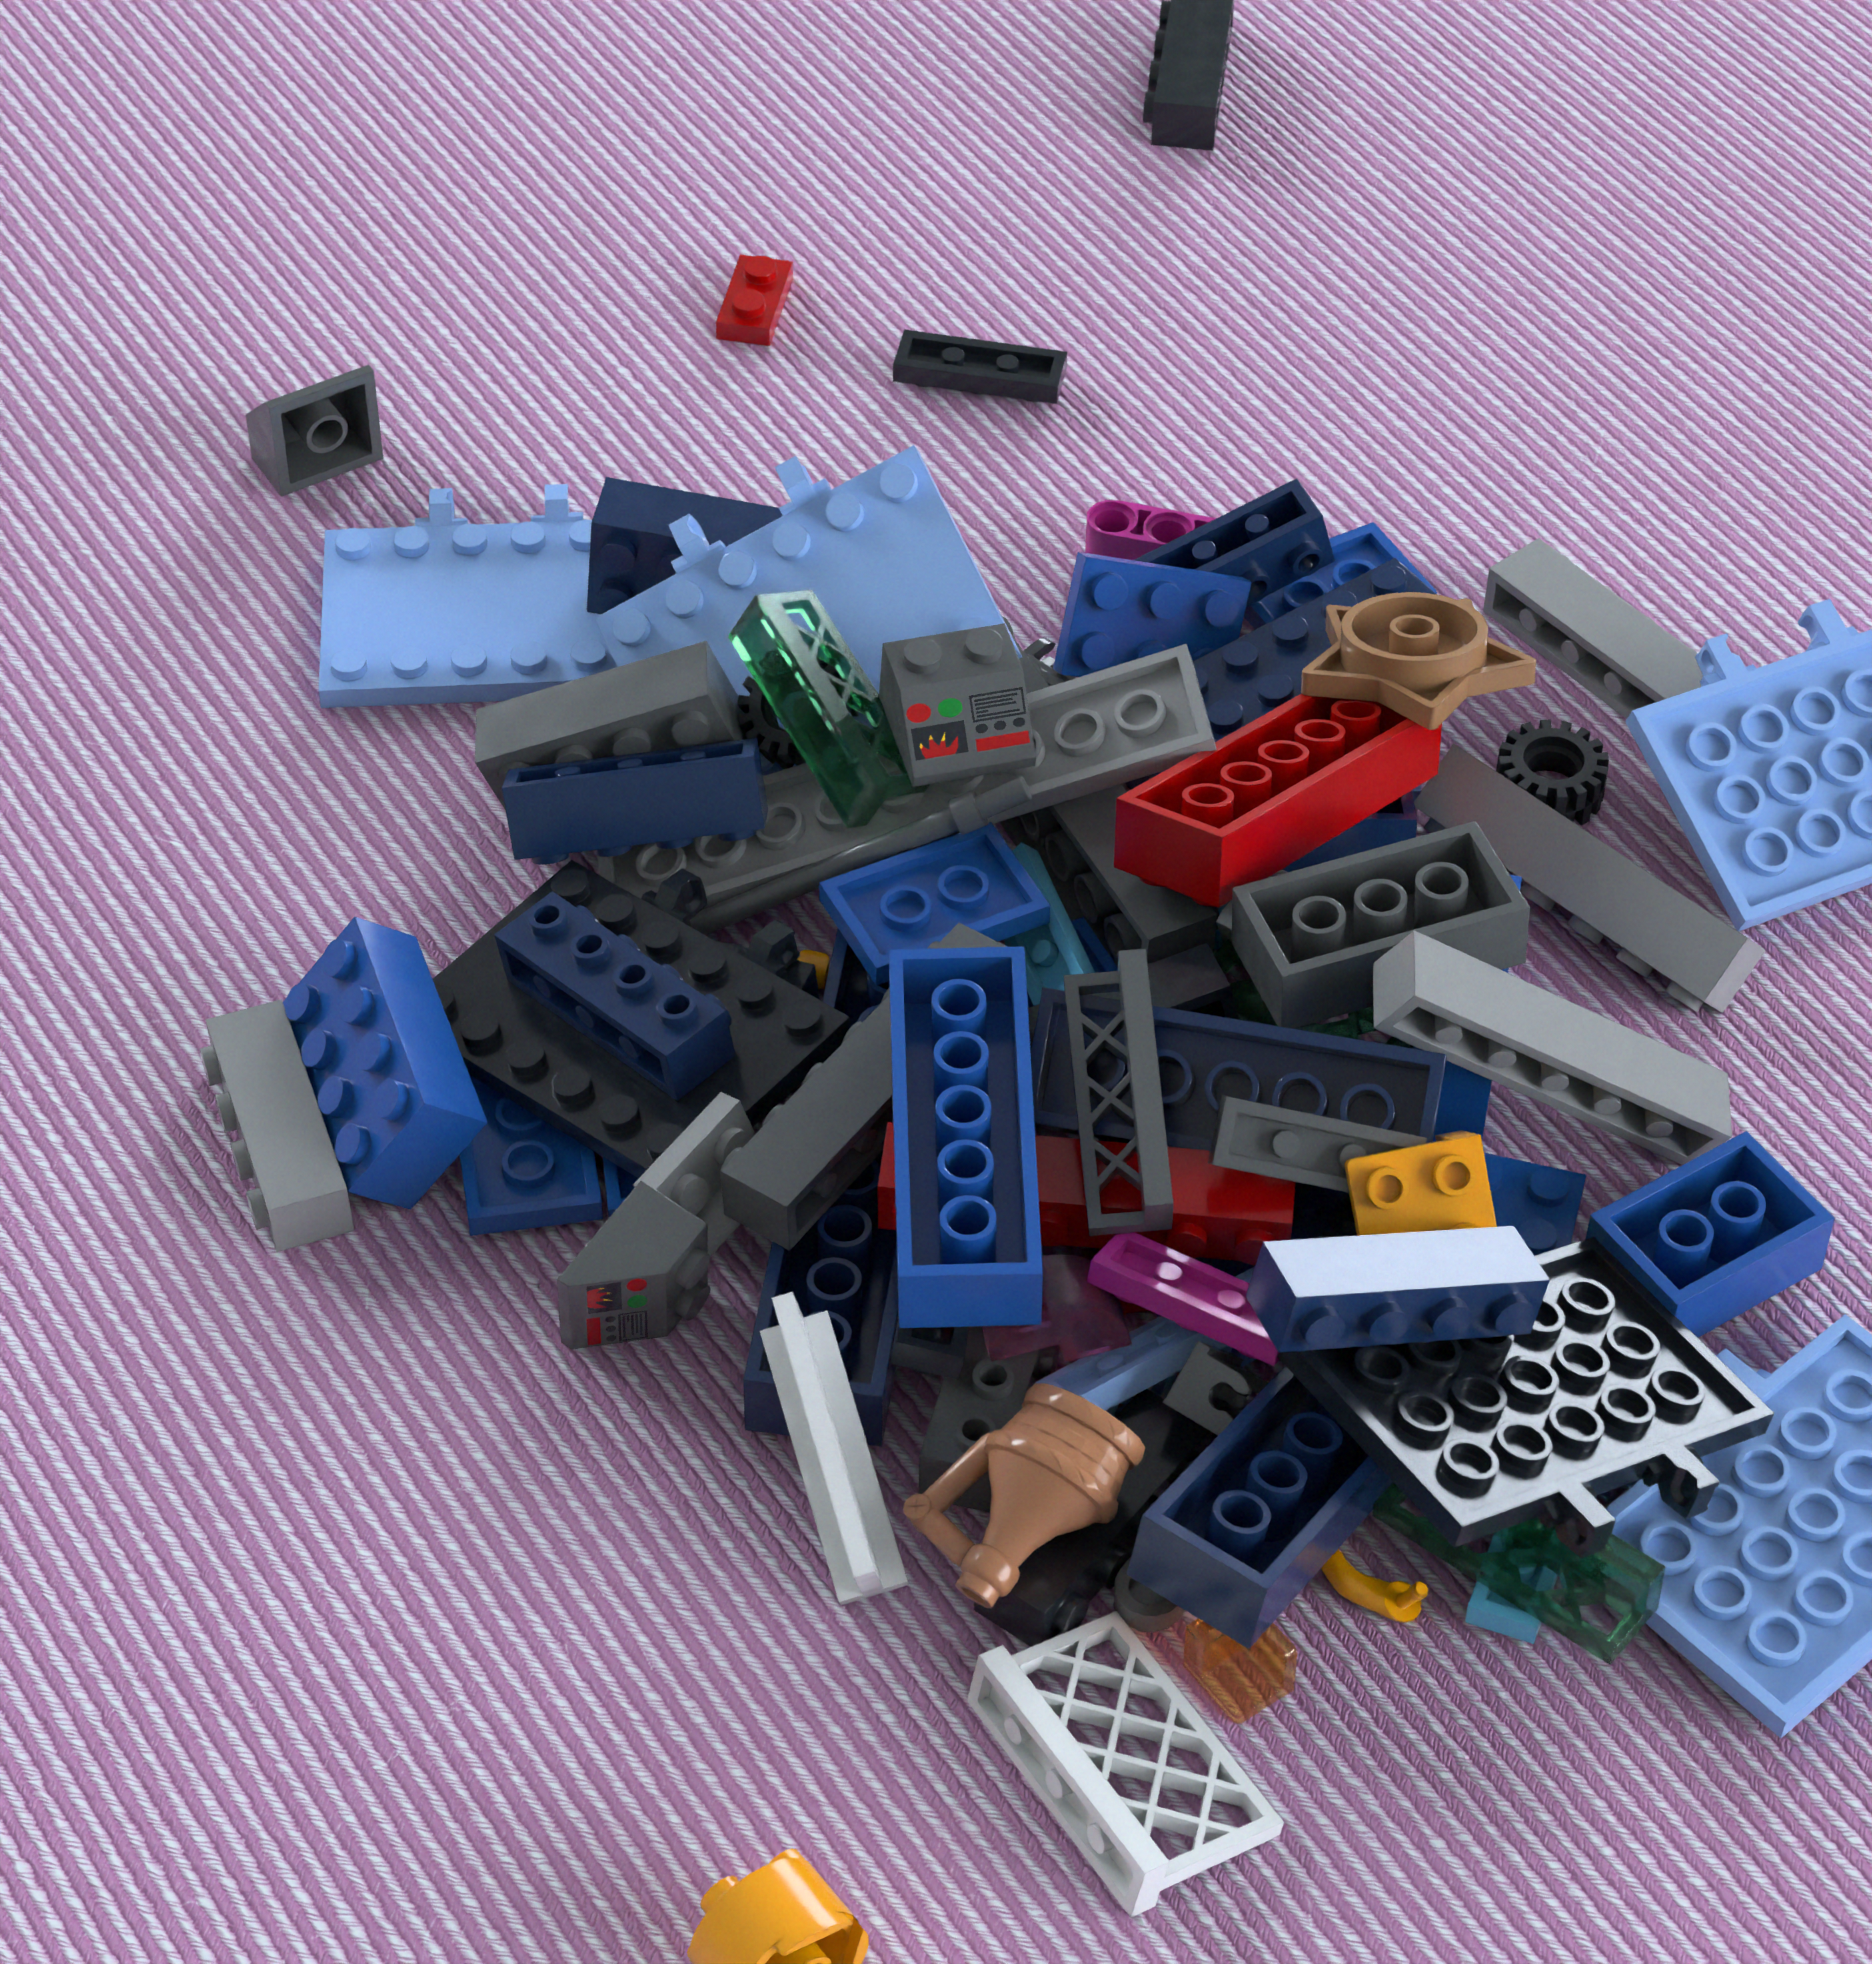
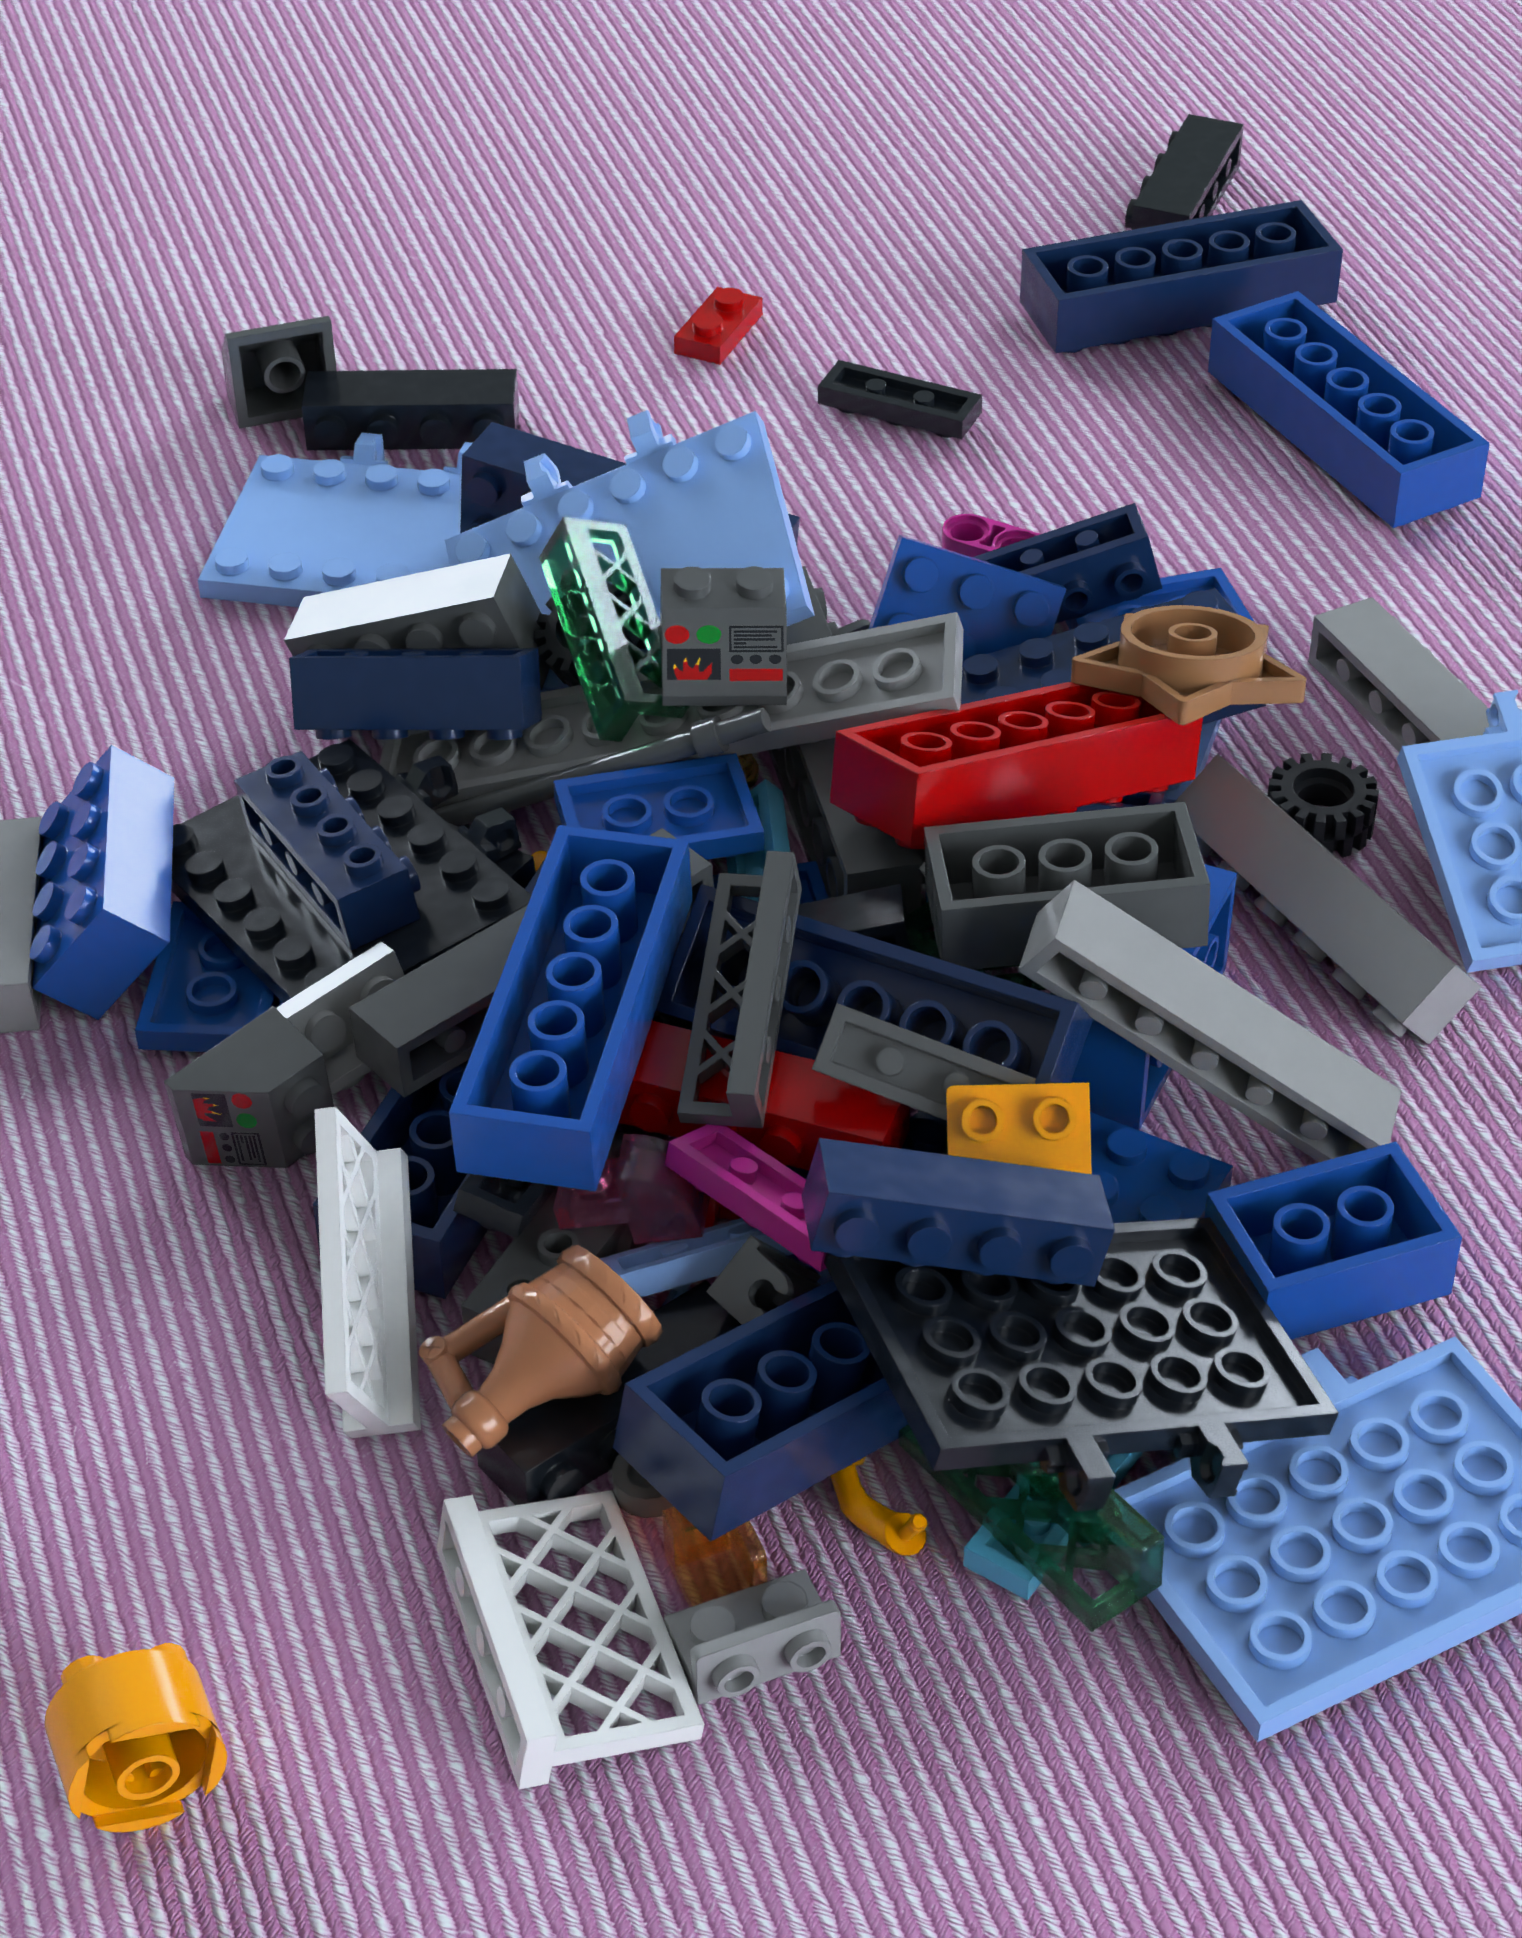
camera: 15 degrees right, 5 degrees down
(471, 451) = (407, 407): none -> black brick
(1225, 181) = (1176, 275): none -> dark blue brick
(1301, 1727) = (755, 1636): none -> light grey bracket
(1443, 318) = (1348, 409): none -> blue brick

